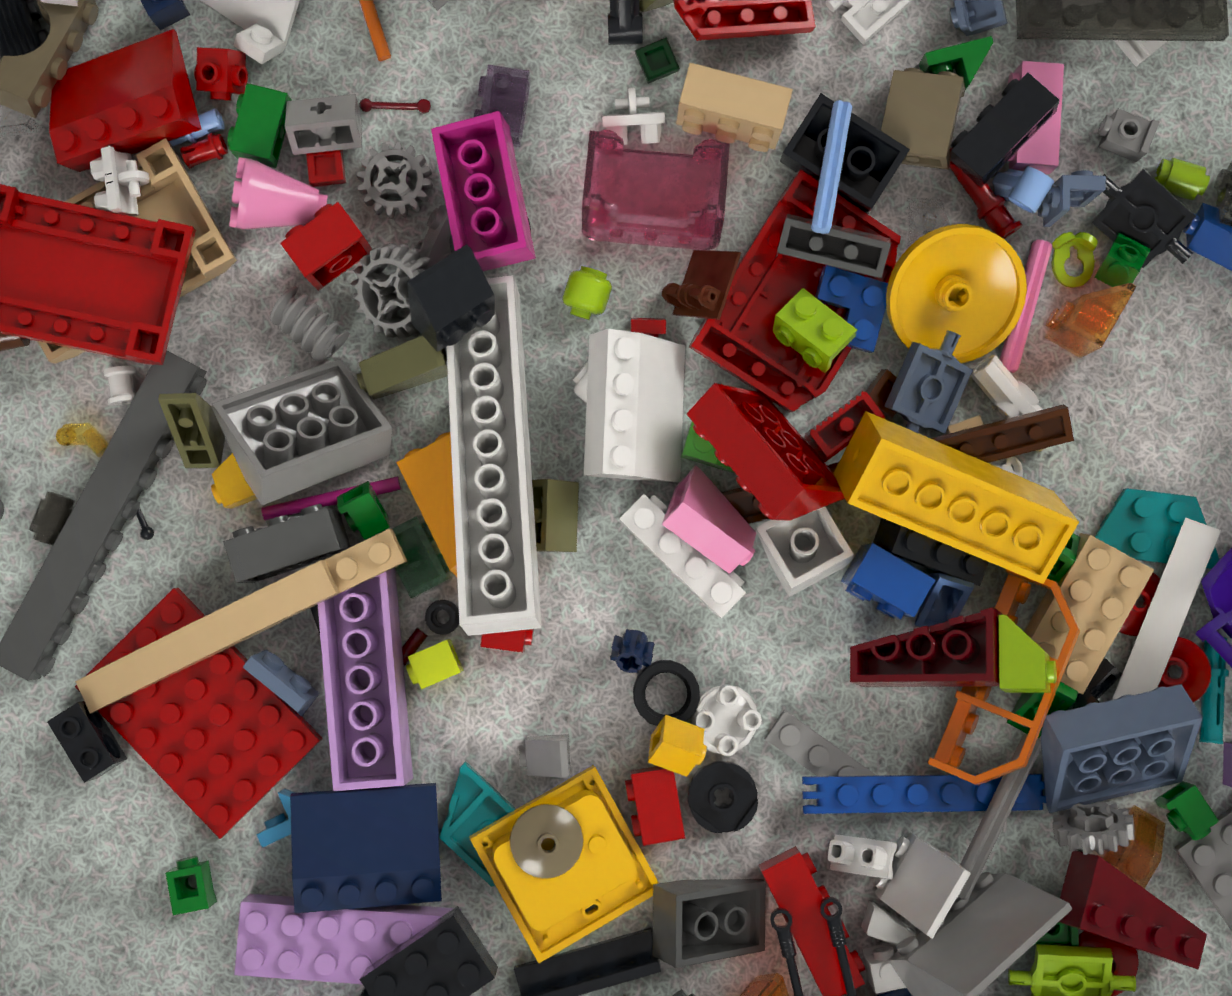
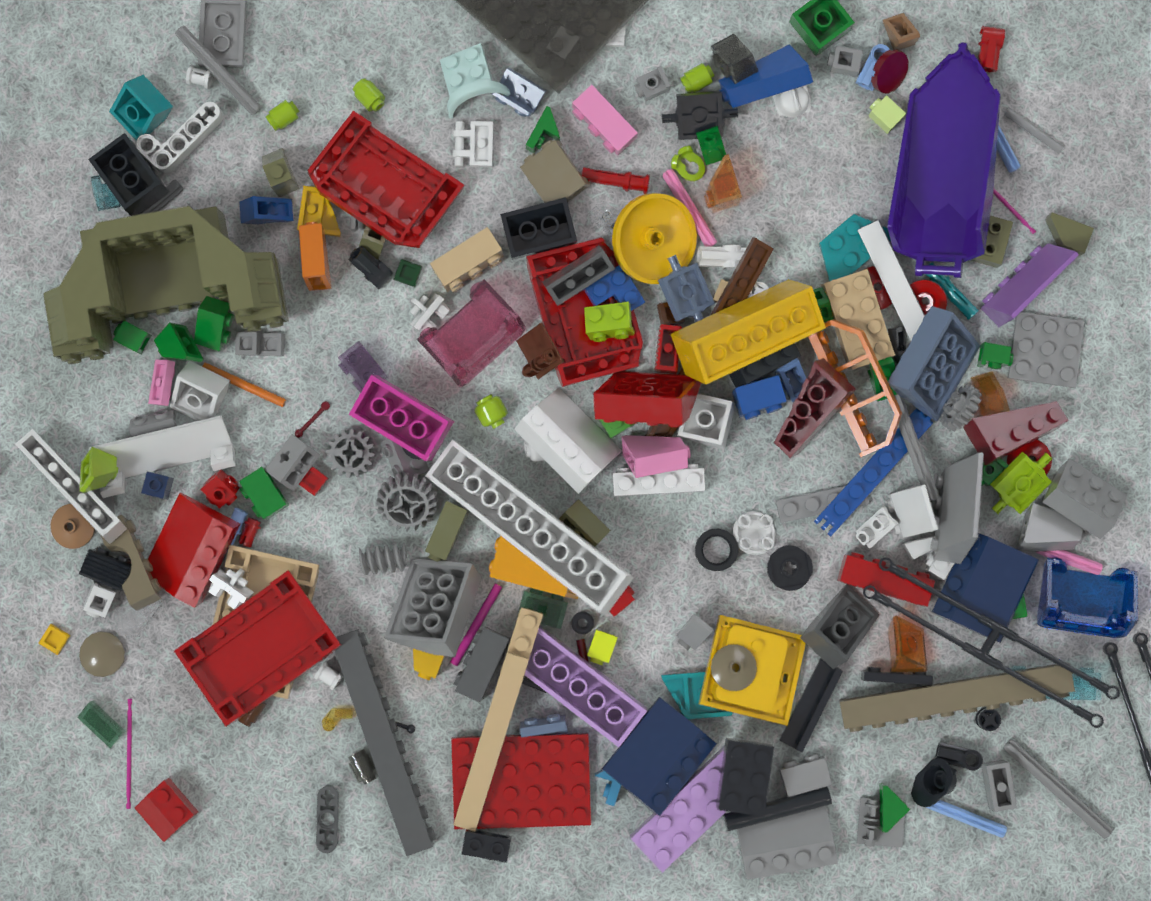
camera: 45 degrees left, 0 degrees up
(182, 895) = (604, 866): green brick -> none
(194, 429) = (387, 658): olive slope -> none
(271, 198) = (306, 520): bright pink cone -> none
(326, 245) = (354, 514): red brick -> none
(364, 510) = (498, 614): green brick -> none
(450, 299) = (441, 480): black slope -> none
(632, 651) = (681, 547): dark blue gear -> none
(649, 326) = (534, 397): red plate -> none
(657, 805) = (764, 602): red brick -> none
(677, 745) = (745, 566): yellow brick -> none
(831, 167) = (541, 243): light blue axle -> none
(1003, 128) = (596, 144): black brick -> none
(1022, 662) = (851, 370): lime slope -> none
(1023, 188) = (632, 160): light blue piece -> none
(1068, 192) = (656, 136): sand blue bracket -> none

